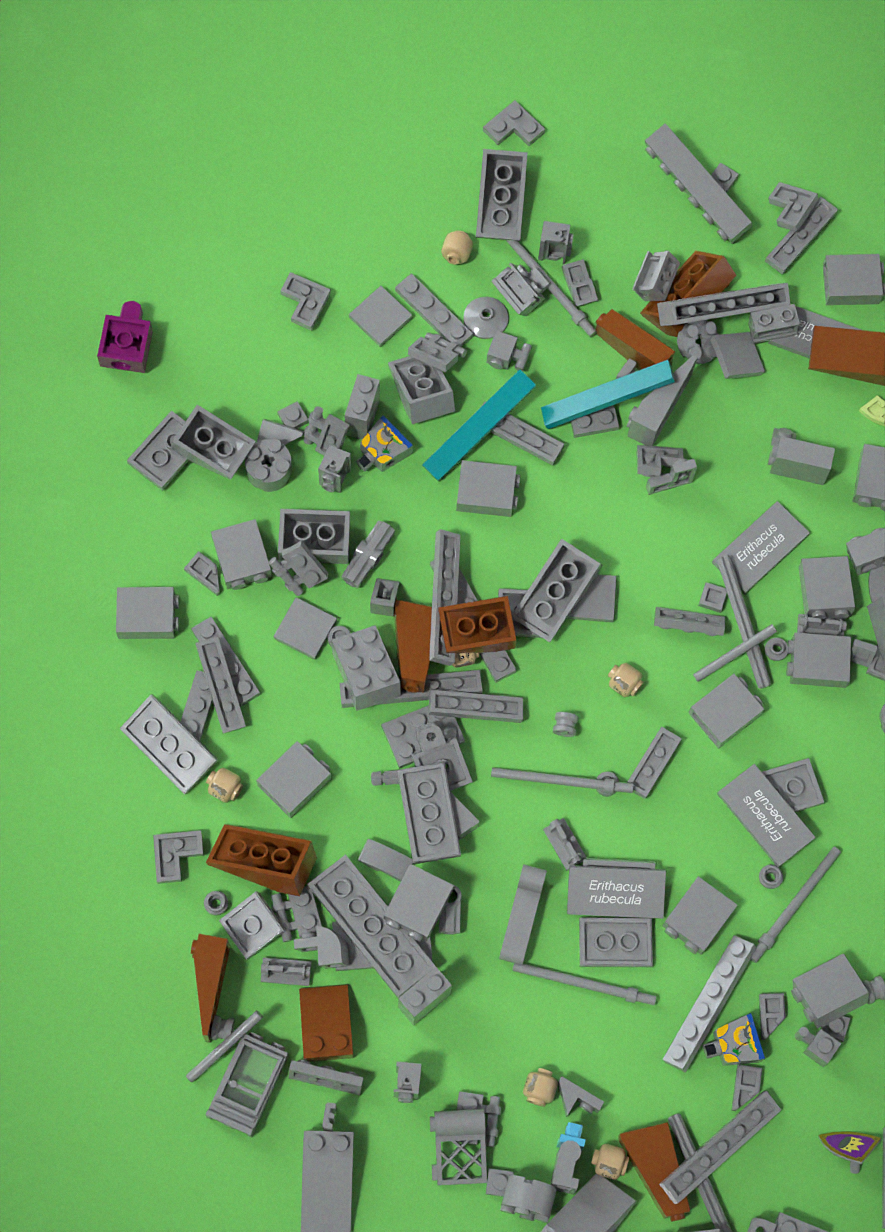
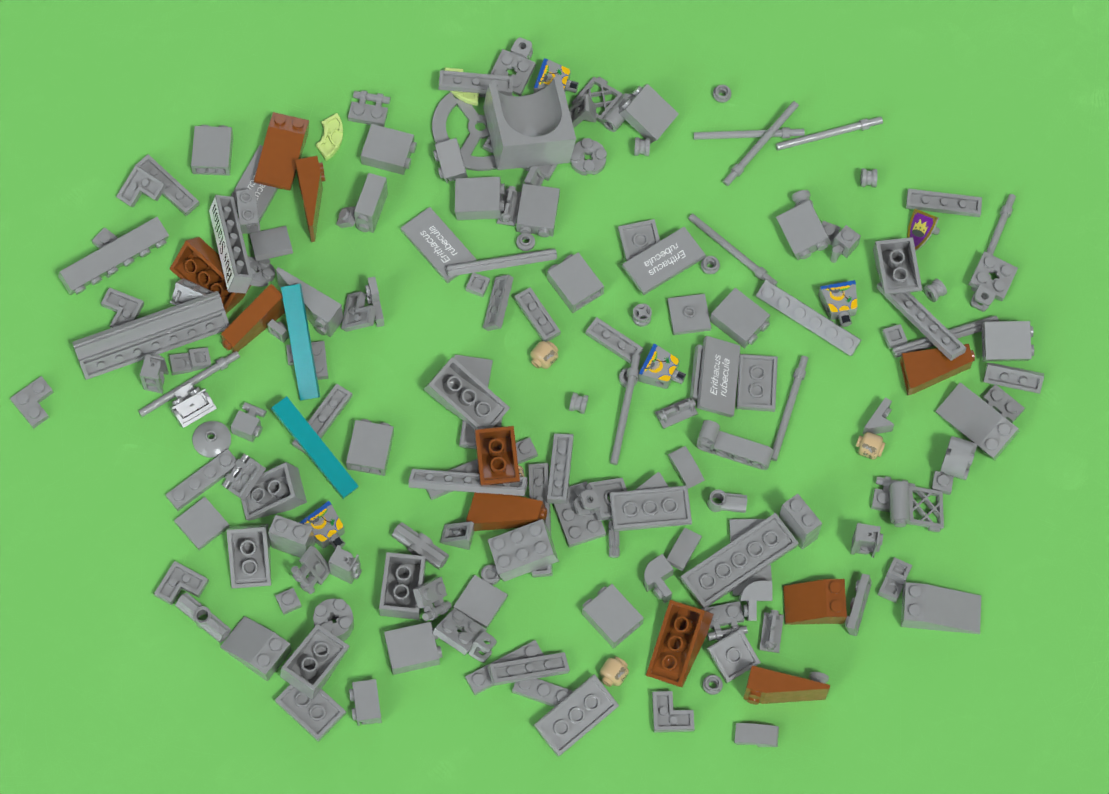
camera: 85 degrees left, 5 degrees down
(125, 340) = (204, 735): magenta brick -> none
(146, 613) = (458, 729): light grey brick -> none
(154, 957) = (756, 734): none -> light grey slope
(173, 509) = (366, 702): none -> light grey hinge
(204, 572) = (423, 681): light grey tile -> none
(224, 1046) = (833, 679): light grey bar -> none
(233, 387) = (257, 647): none -> light grey slope
(248, 1084) = (862, 665): light grey door -> none
(254, 621) = (471, 637): none -> light grey plate
(273, 316) = (211, 625): none -> light grey piece
(278, 431) = (304, 612): light grey tile -> none
(329, 1117) = (893, 597): light grey tile -> none
(336, 367) = (249, 556): none -> light grey slope
(349, 826) = (655, 574): none -> light grey brick
(363, 1123) = (894, 580): none -> light grey slope
(418, 903) = (726, 519): light grey brick -> none
(457, 246) = (146, 454): tan head -> none
(492, 858) = (686, 467): none -> light grey slope
(501, 194) = (102, 414): light grey slope -> none
(569, 1152) = (928, 428): light grey hips -> none
(603, 235) = (151, 335): none -> light grey plate
(610, 1161) = (928, 399): tan head -> none
(620, 820) = (660, 368): none -> torso
(636, 209) = (125, 306): none -> light grey plate
(678, 668) = (537, 315): none -> light grey plate
(694, 790) = (639, 311): none -> light grey wheel
(695, 1115) = (894, 336): none -> light grey plate
(700, 853) = (689, 314): none -> light grey plate
(735, 652) = (528, 270): light grey bar -> none
(746, 1085) = (871, 299): light grey tile -> none
(766, 1167) = (935, 290): none -> light grey wheel
(771, 1012) = (816, 276): light grey tile -> none
(789, 1114) = (897, 266): none -> light grey slope
(808, 391) = (310, 179): none -> dark orange slope

